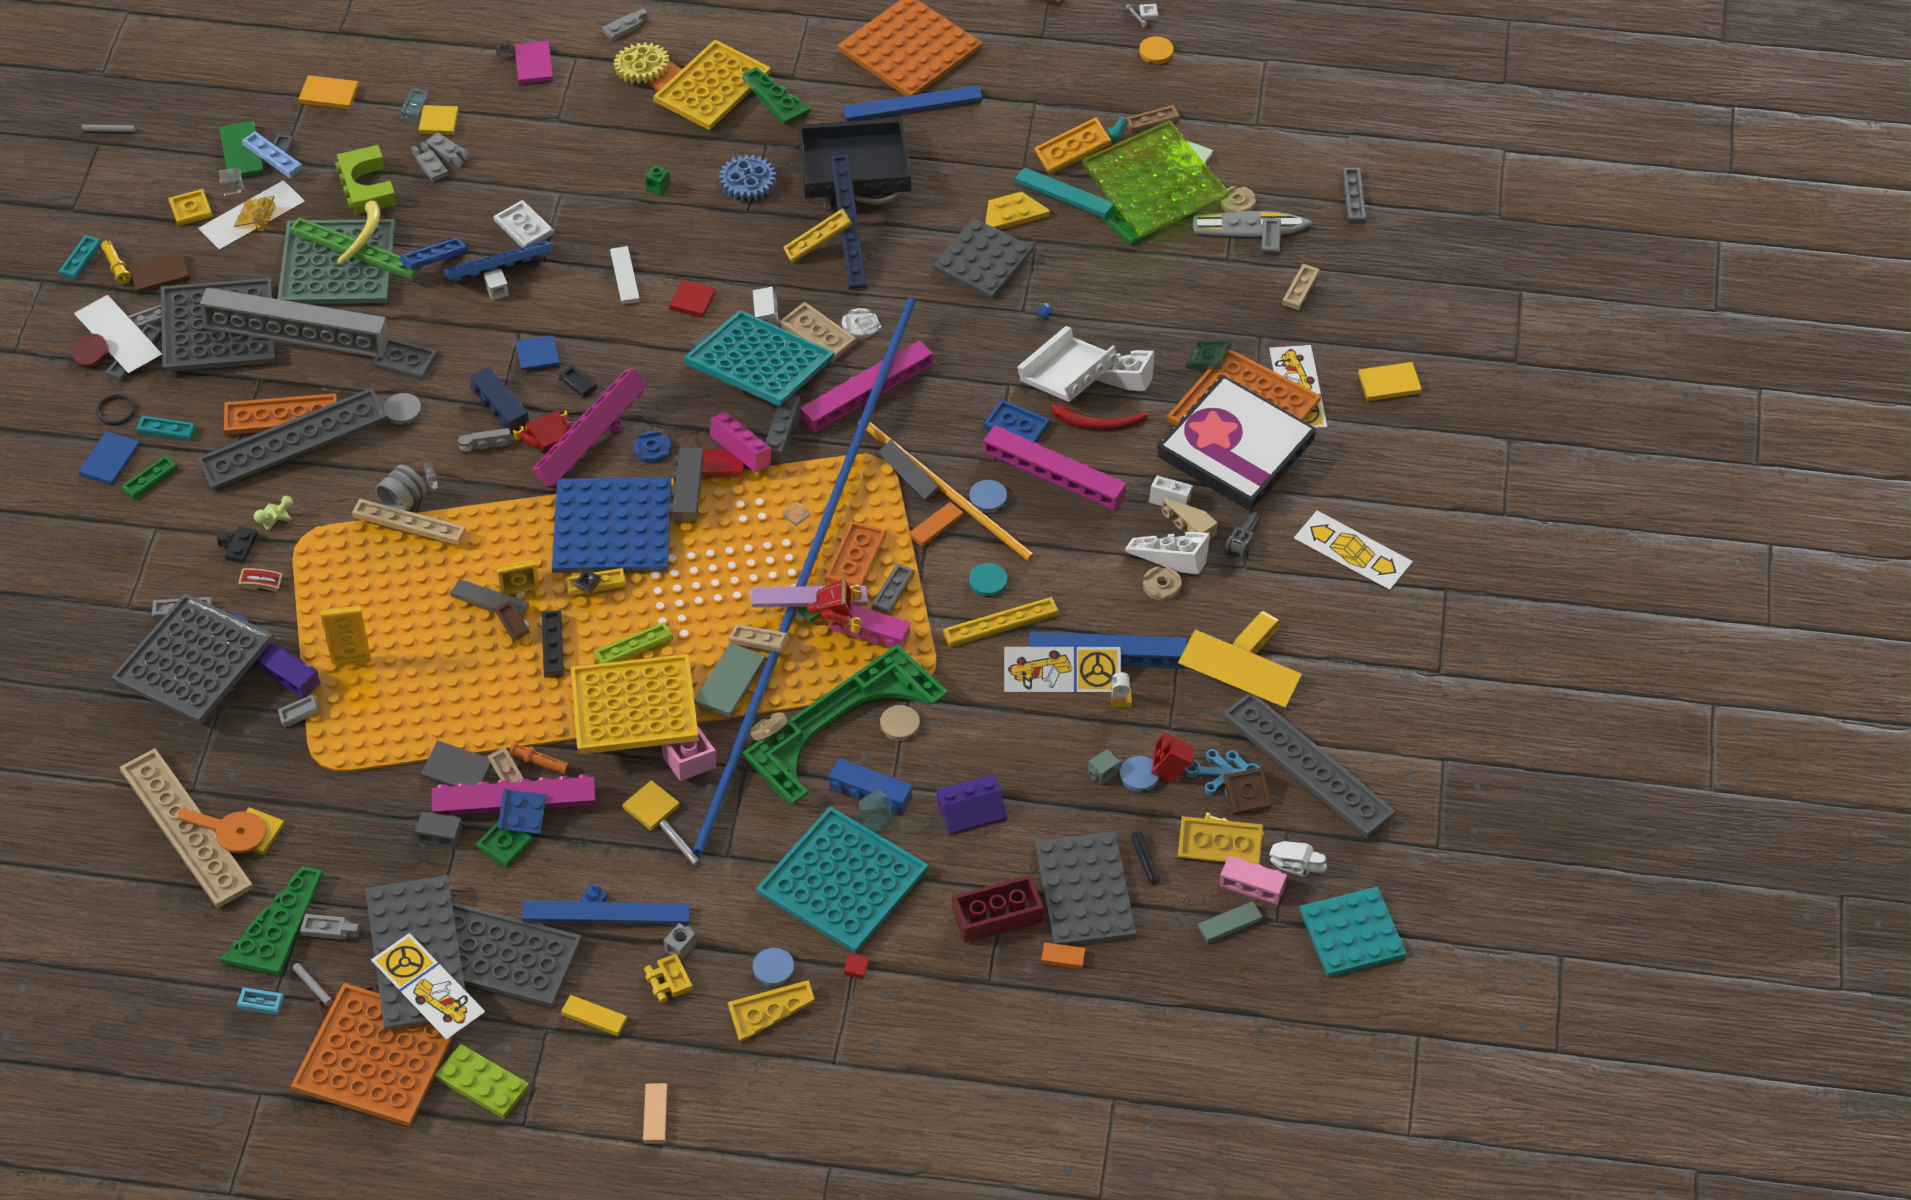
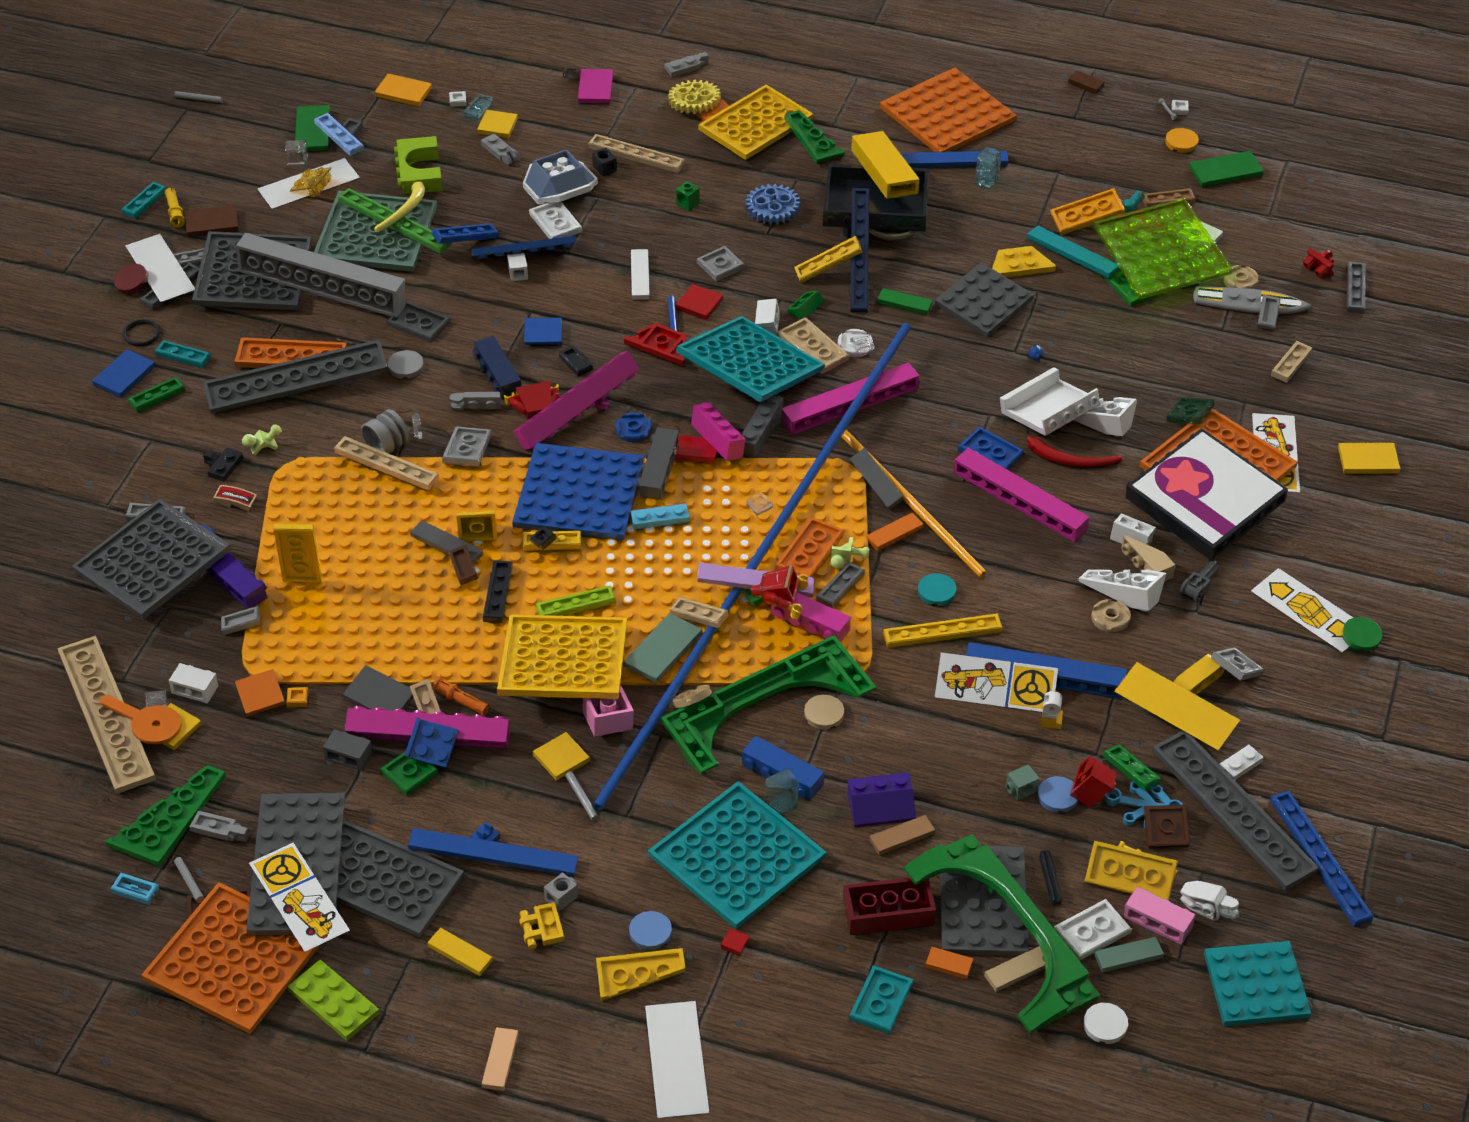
camera: 10 degrees right, 5 degrees down
(190, 207) = (254, 170): yellow tile -> none
(232, 805) = (156, 698): none -> clear tile
(267, 783) = (193, 683): none -> white brick
(336, 783) = (260, 692): none -> orange tile
(374, 782) = (297, 697): none -> light orange tile
(389, 95) = (457, 98): none -> white tile
(429, 162) = (481, 158): light grey hinge -> none
(486, 491) = (466, 446): none -> light grey tile
(517, 177) = (558, 178): none -> sand blue piece
(562, 151) = (604, 162): none -> black brick
(593, 136) = (637, 153): none -> tan tile
(660, 349) = (659, 342): none -> red wing
(667, 317) = (672, 313): none -> blue bar
(699, 541) = (660, 516): none -> medium azure plate
(705, 252) = (720, 263): none -> light grey tile
(802, 287) = (806, 304): none -> green slope
(822, 1087) = (676, 1059): none -> white sticker
(857, 120) = (885, 164): none -> yellow brick
(889, 557) = (843, 554): none -> yellowish green piece
(902, 270) = (904, 301): none -> green tile
(963, 108) = (988, 167): none -> clear light blue brick
(988, 496) = (951, 512): medium blue tile -> none
(997, 836) = (902, 835): none -> medium nougat tile
(1005, 1001) = (881, 999): none -> teal tile
(1136, 946) = (1015, 969): none -> tan tile
(1175, 954) = (1065, 979): none -> green piece
(1192, 903) = (1092, 929): none -> white tile
(1205, 77) = (1226, 168): none -> green tile
(1205, 736) = (1132, 767): none -> green tile
(1218, 991) = (1105, 1023): none -> white tile
(1291, 616) = (1237, 663): none -> light grey tile
(1309, 716) = (1242, 762): none -> white plate
(1317, 171) = (1321, 260): none -> red hips
(1397, 800) = (1318, 852): none -> blue tile
(1406, 568) = (1362, 634): none -> green tile

